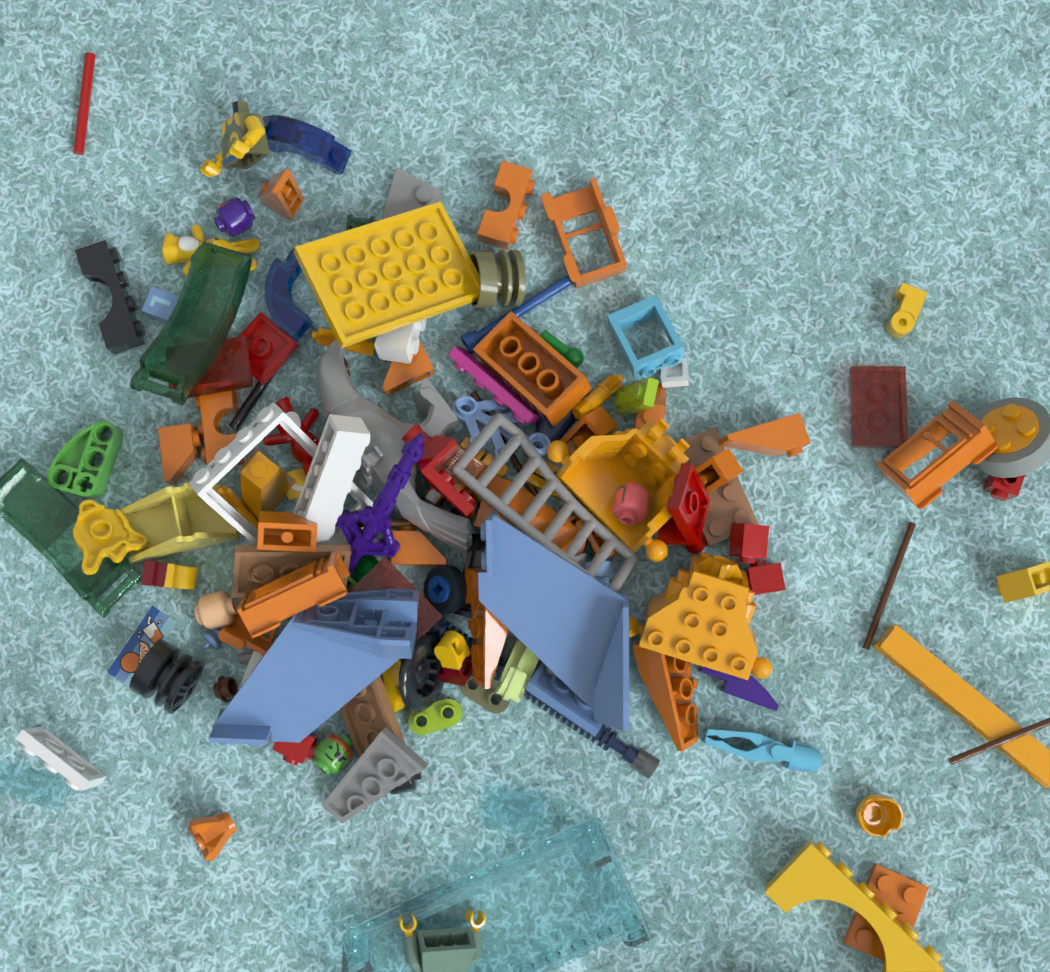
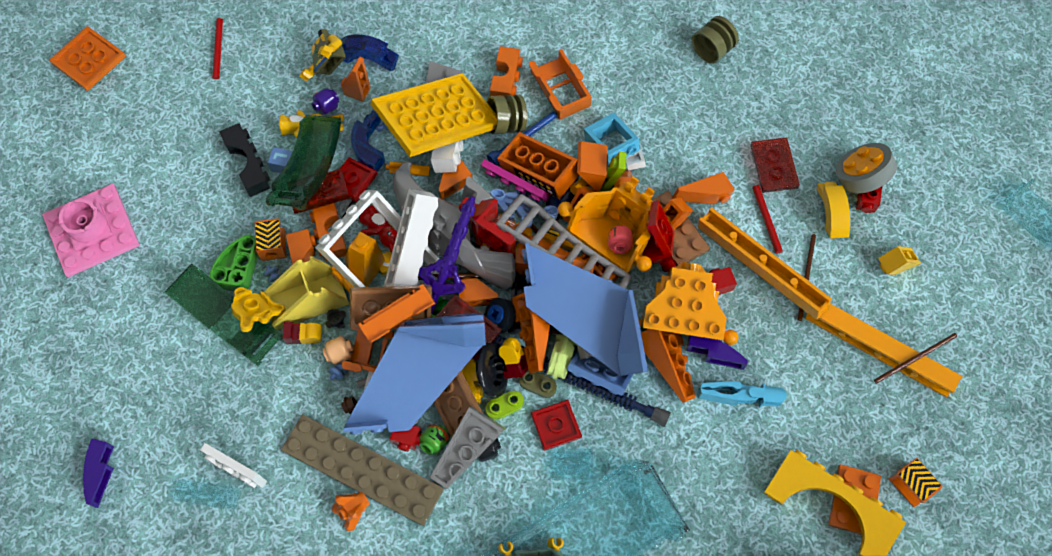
camera: 10 degrees left, 15 degrees down
(136, 430) = (270, 239): none -> piece
(138, 485) = (271, 272): none -> medium blue hair
(152, 629) = (285, 386): sticker -> none
(165, 675) = (306, 398): black wheel -> none
(213, 553) = (331, 314): none -> black plate
(235, 782) = (363, 470): none -> dark tan plate
(286, 532) = (386, 276): orange slope -> none
(501, 754) = (556, 425): none -> red tile
(608, 381) = (592, 163): none -> orange slope
(748, 542) = (706, 254): red brick -> none
(829, 191) = (715, 39): none -> olive wheel
(830, 564) = (765, 264): none -> light orange tile
(850, 489) = (767, 219): none -> red bar
(879, 815) = (834, 428): light orange hair -> none
(907, 310) = (781, 103): yellow leg -> none
(953, 505) = (836, 209): none -> yellow arch
(972, 447) = (819, 193): orange piece -> none
(972, 906) = (915, 482): none -> piece

